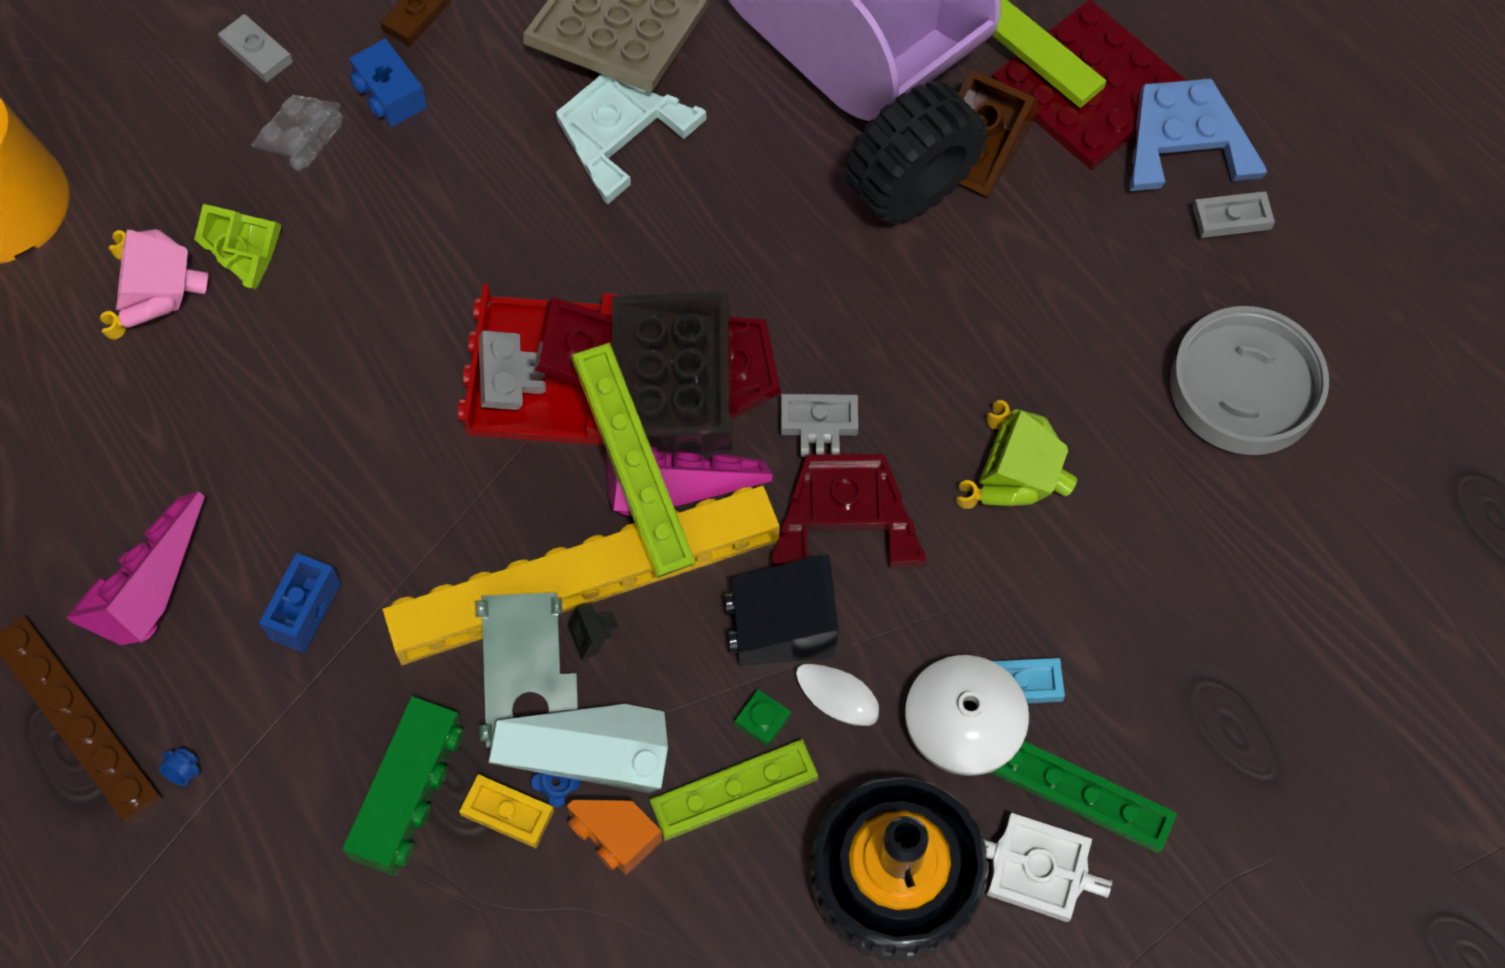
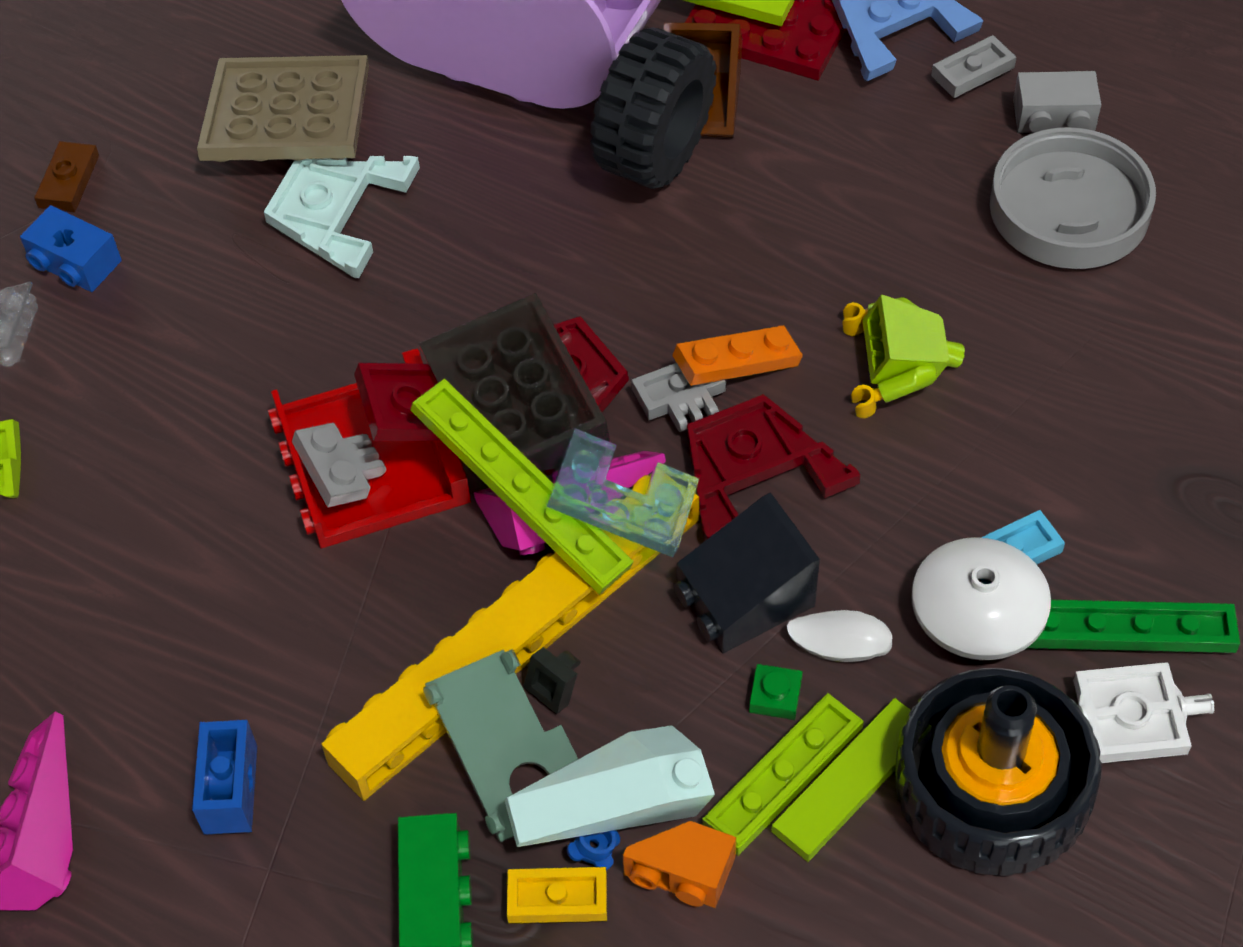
camera: 20 degrees left, 10 degrees down
(681, 497) = (647, 519): none -> clear light blue plate
(775, 821) = (844, 784): none -> lime tile
(880, 409) = (737, 355): none -> orange plate
(1287, 281) = (1056, 100): none -> light grey brick

